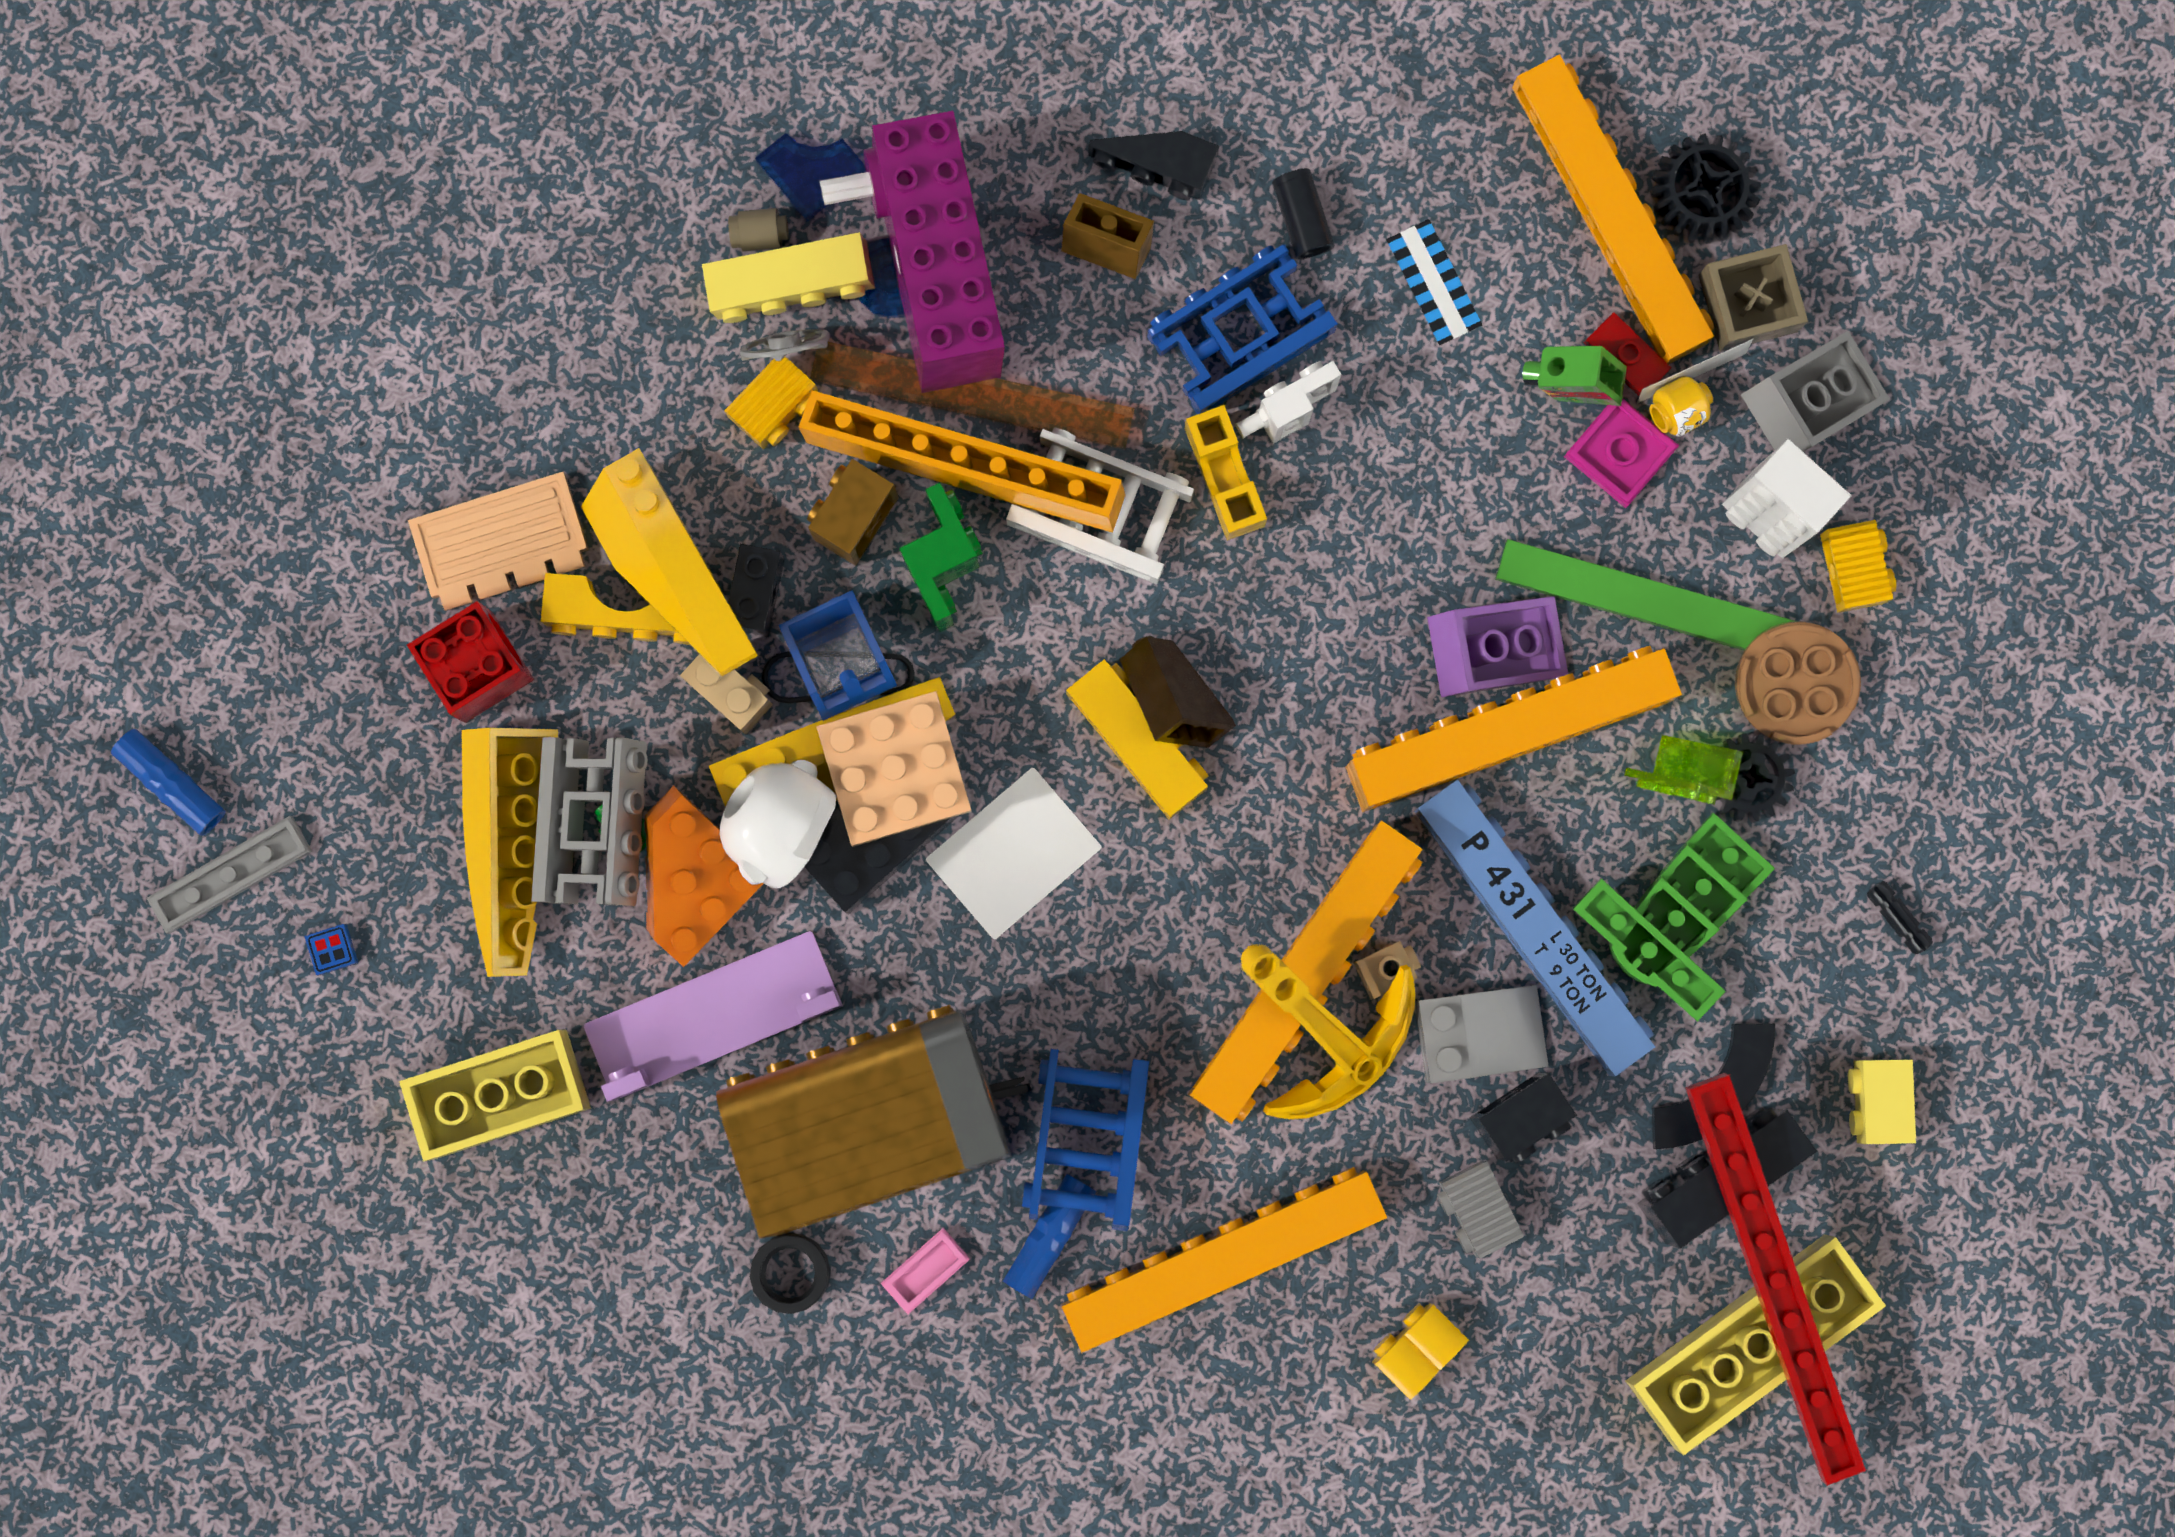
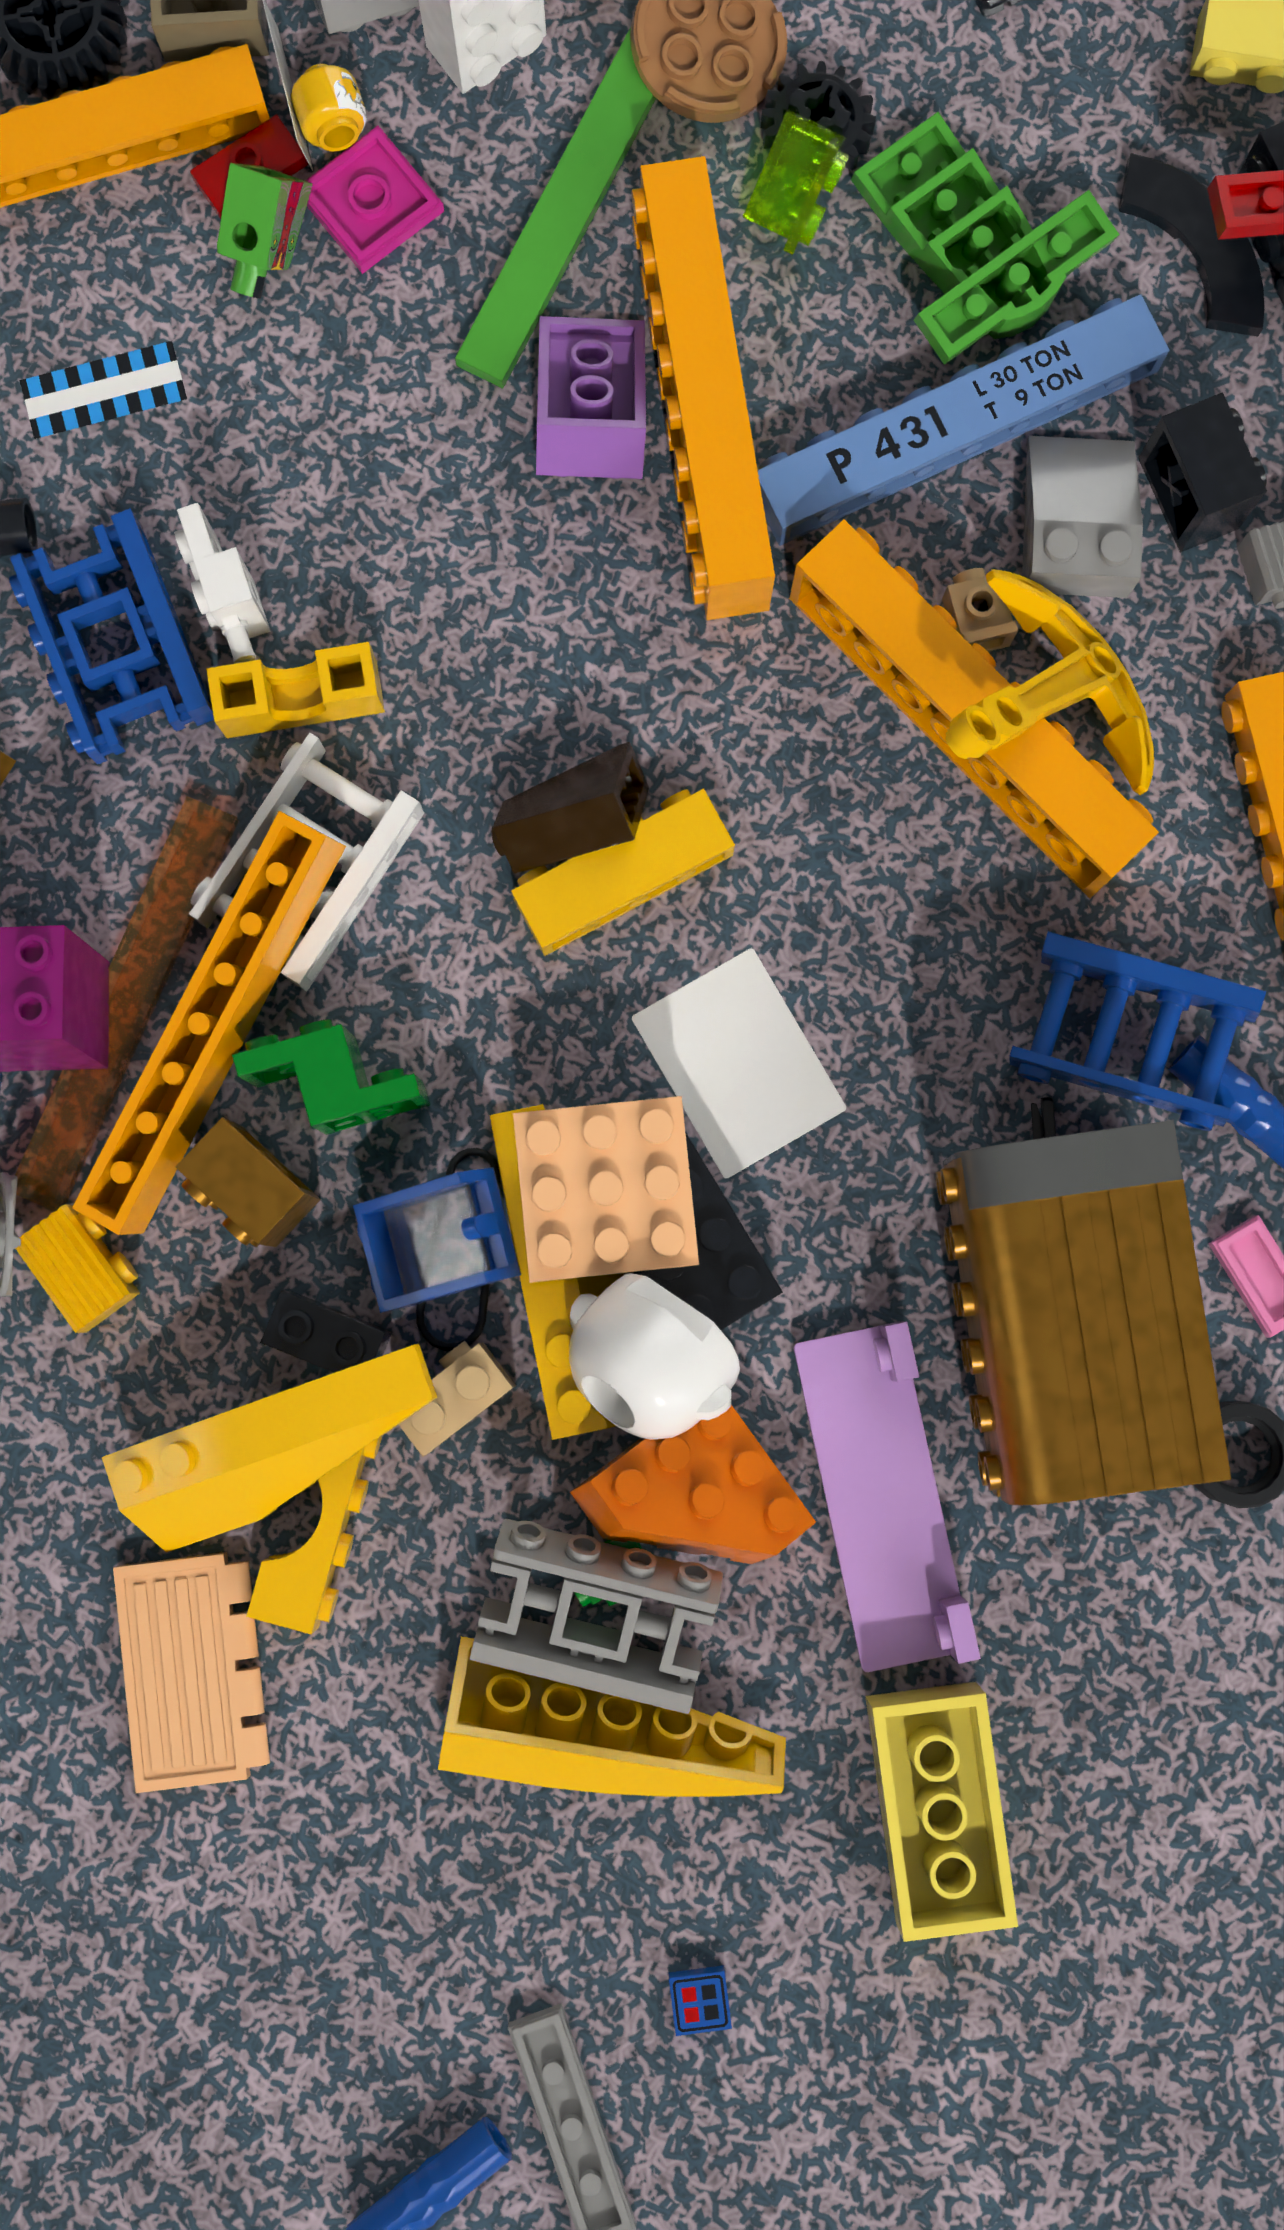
camera: 80 degrees left, 0 degrees up
(470, 662) = (347, 1742): red brick -> none

